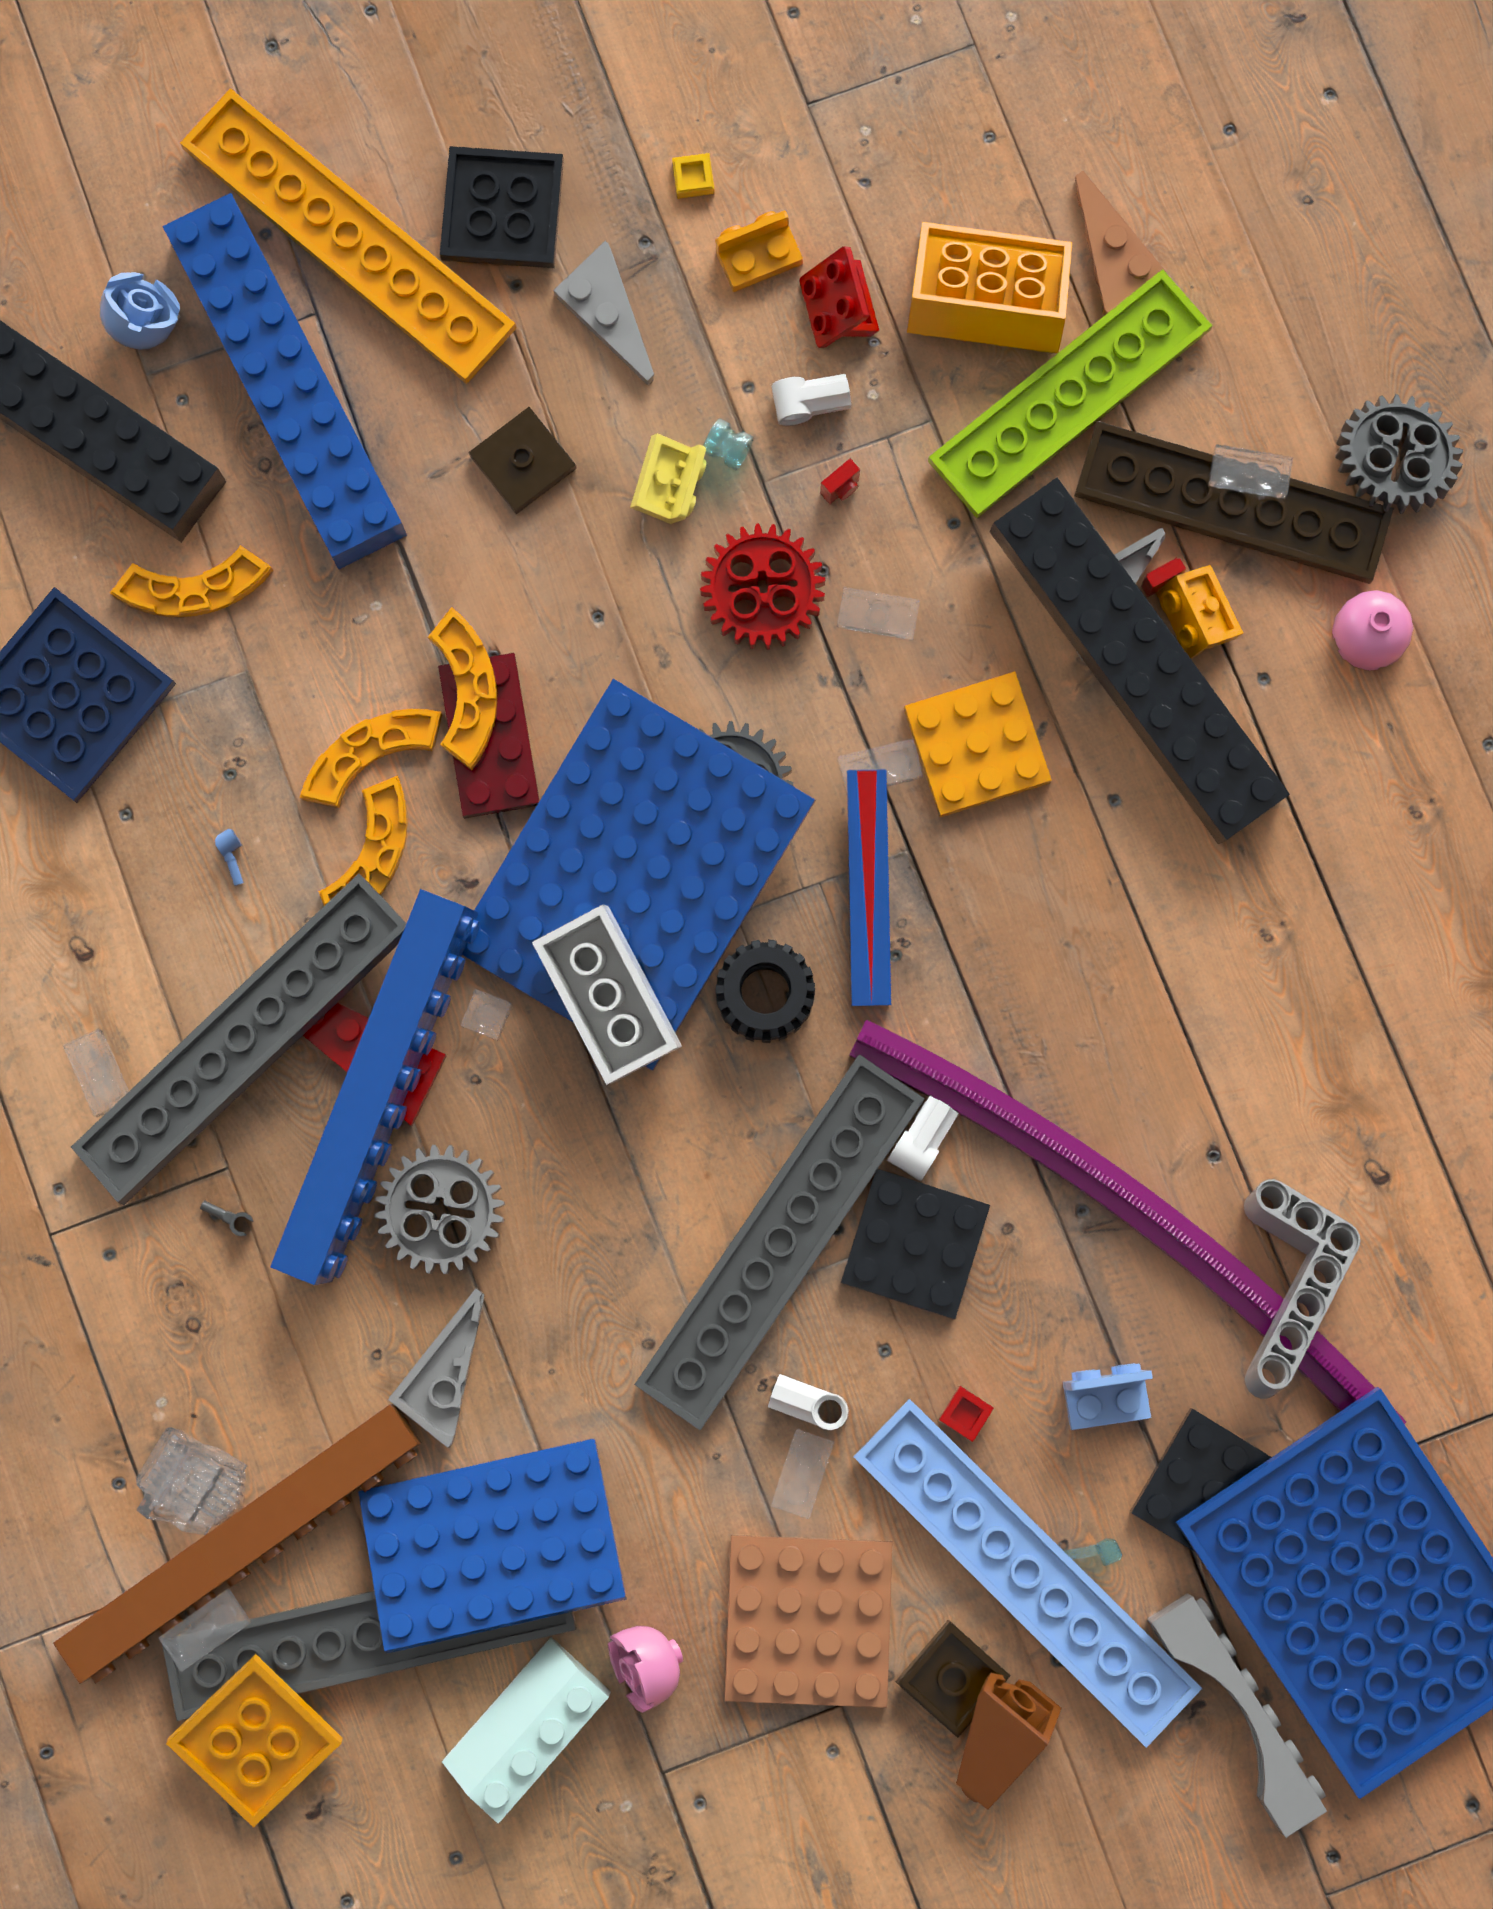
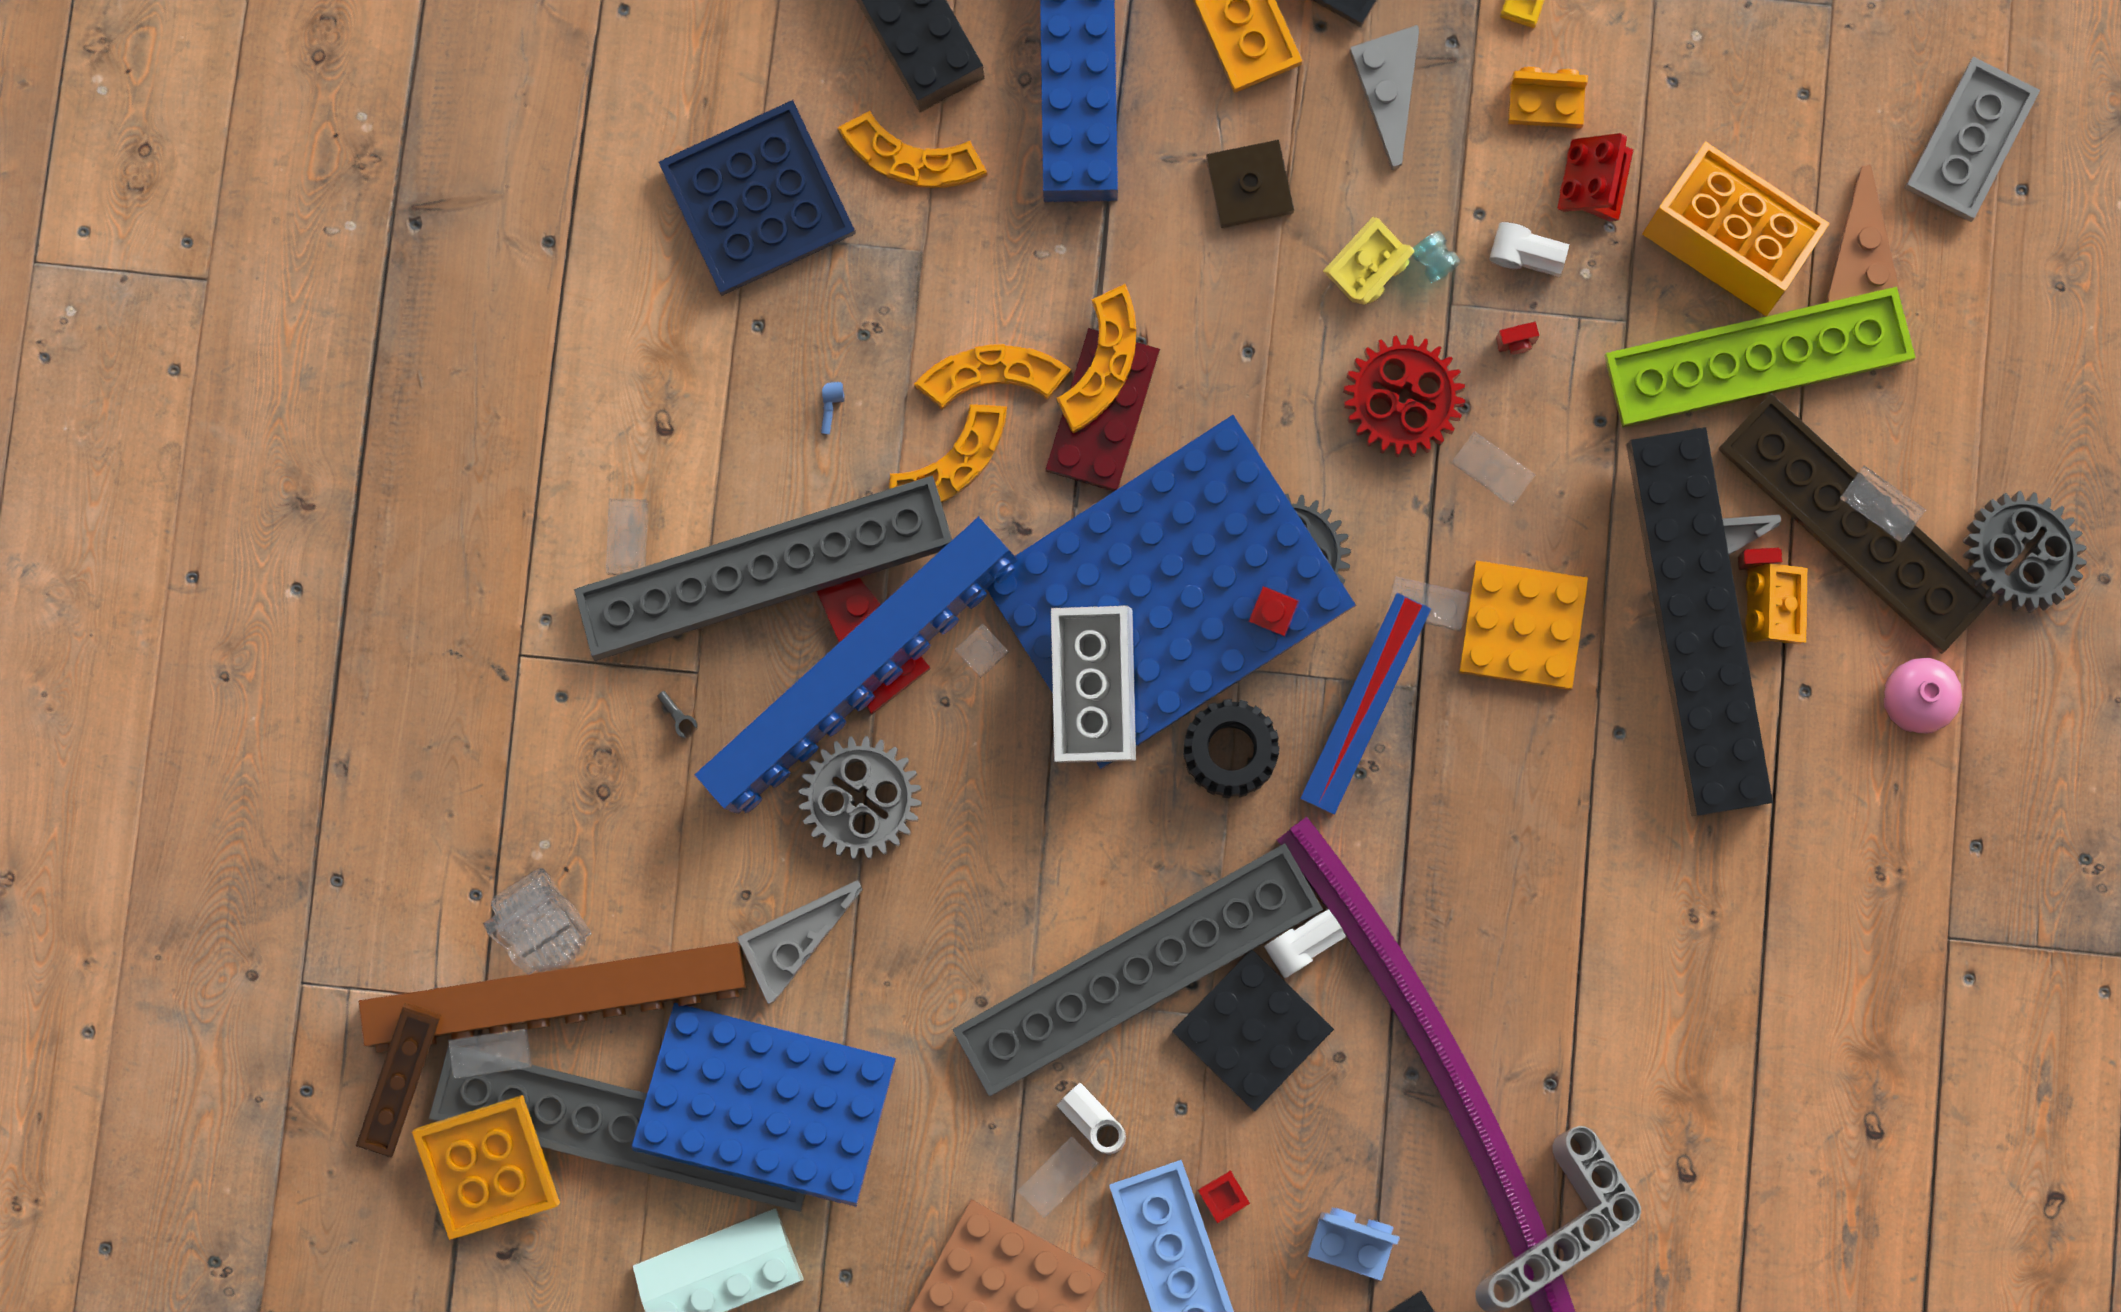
camera: 30 degrees right, 0 degrees up
(128, 1699) = (398, 1080): none -> reddish brown tile
(646, 1664) = (845, 1270): bright pink cylinder -> none
(742, 842) = (1274, 611): none -> red plate
(1163, 103) = (1972, 139): none -> light grey plate

